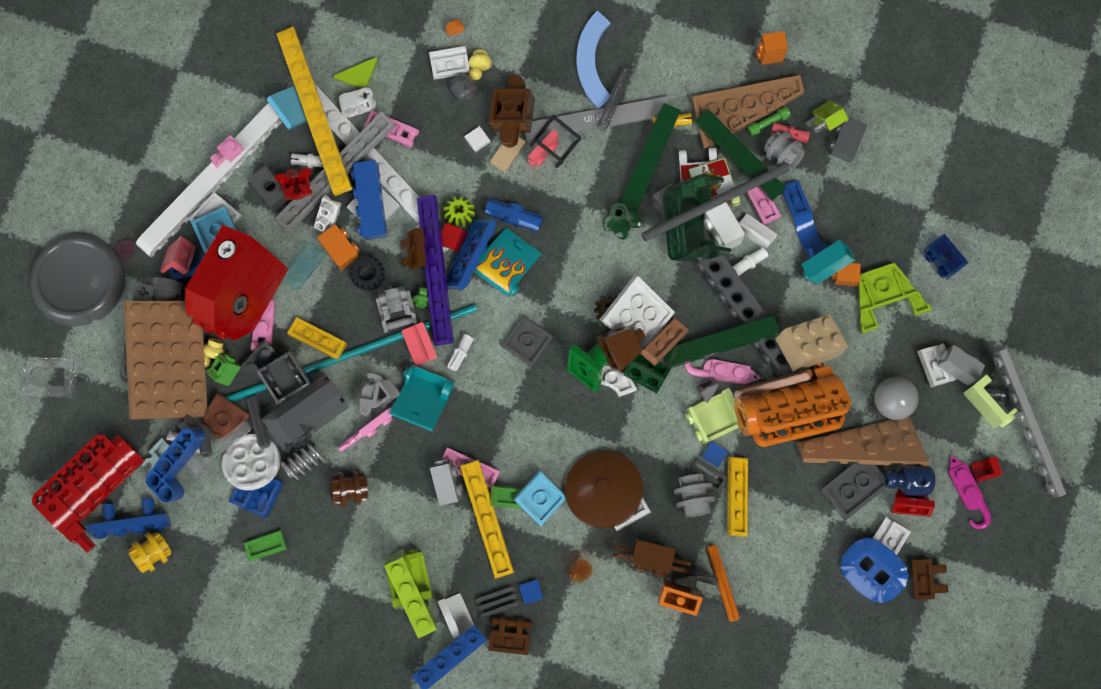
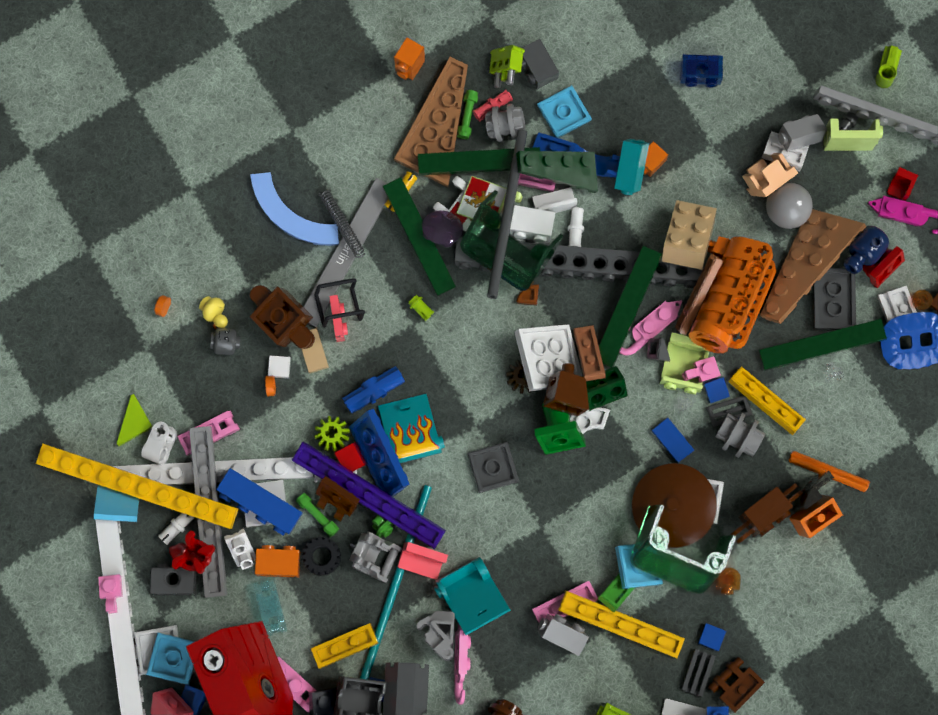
camera: 50 degrees left, 0 degrees up
(396, 233) = (305, 502): none -> bright green bar
(449, 62) = (190, 335): white plate -> none
(458, 143) = (270, 385): none -> orange tile
(460, 352) = (457, 532): white axle -> none
(551, 503) = (654, 558): none -> clear green windscreen
(600, 200) = (420, 307): none -> lime pin
(622, 223) = (455, 307): dark green plate -> none
(651, 452) = (672, 440): none -> blue tile
(668, 167) = (442, 228): none -> clear purple dish
(672, 268) = (529, 296): none -> dark orange tile
(721, 434) = (703, 369): none -> bright pink plate
(783, 213) = (561, 167): none -> dark green wing
(813, 504) = (823, 344): none -> dark green tile
(829, 186) = (564, 112): none -> medium azure tile
(883, 288) = (686, 140): lime wing -> none
(906, 365) = (765, 178): none -> light nougat panel
(909, 551) = (922, 299): none -> clear orange plate
(1068, 389) = (888, 66): none -> lime piece

